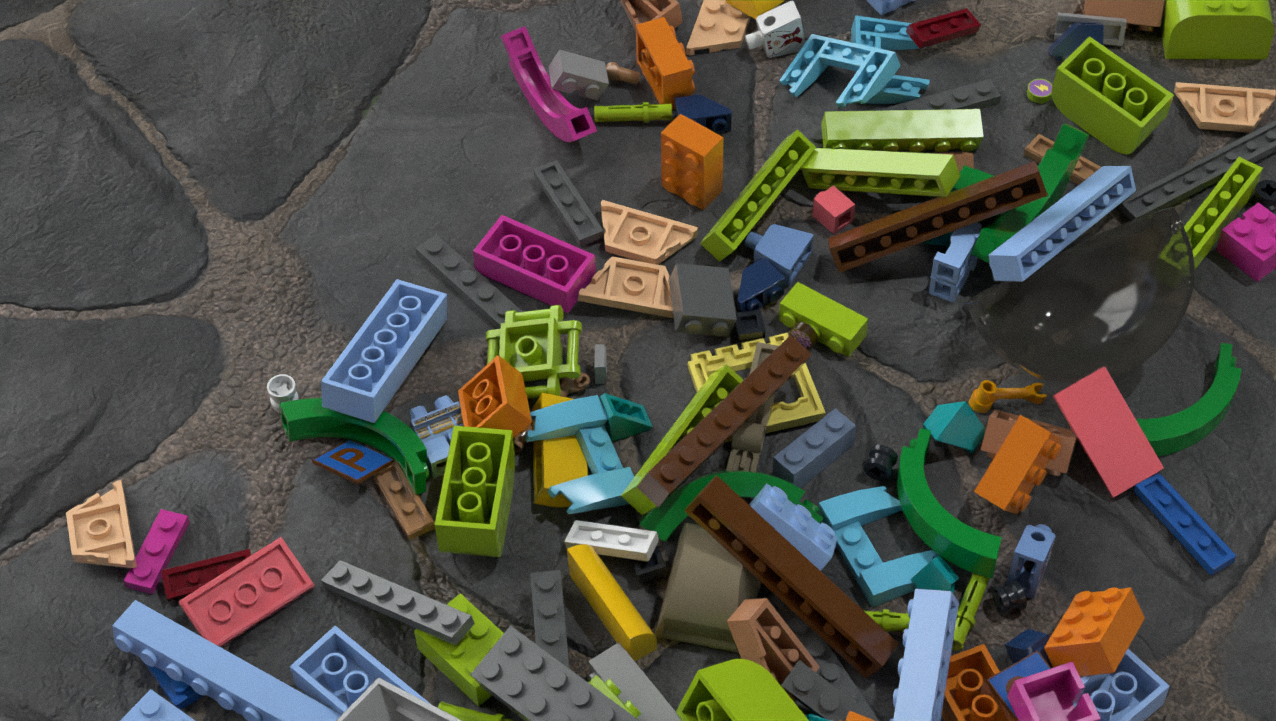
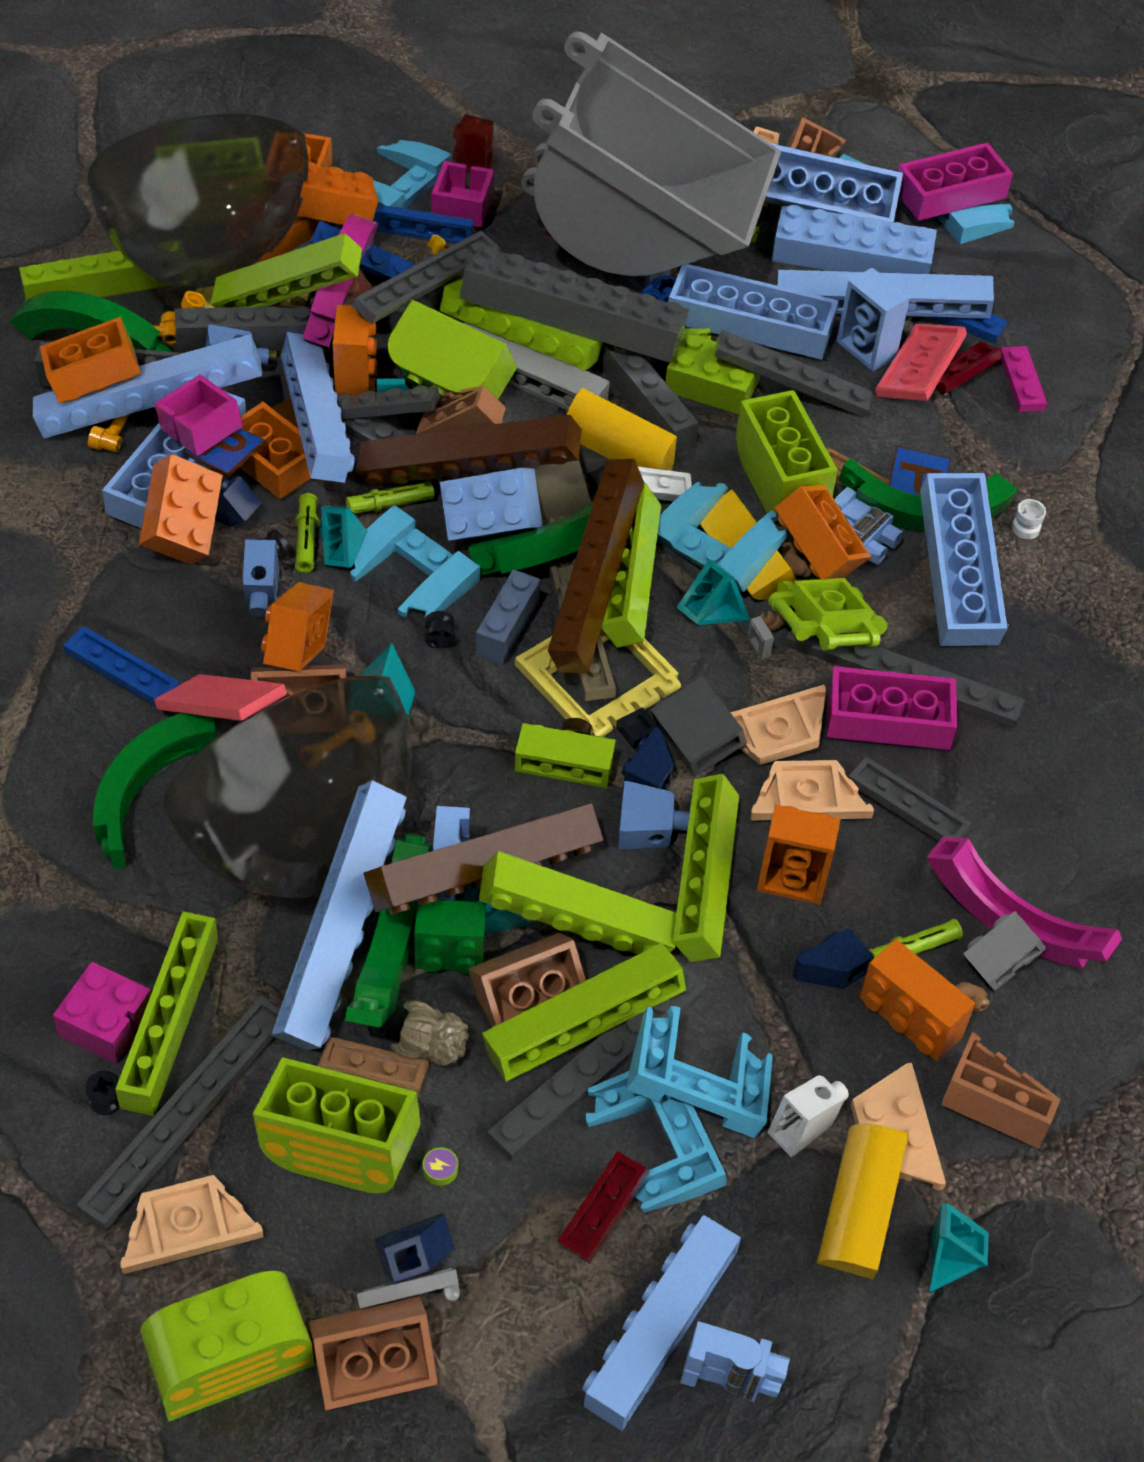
camera: 150 degrees right, 0 degrees up
(102, 530) = (1077, 371): light nougat wing -> none
(272, 623) = (872, 319): none -> light blue brick
(833, 209) = (620, 880): coral brick -> none
(936, 526) = (360, 570): green arch -> none
(1018, 149) = (431, 1035): none -> dark tan hair

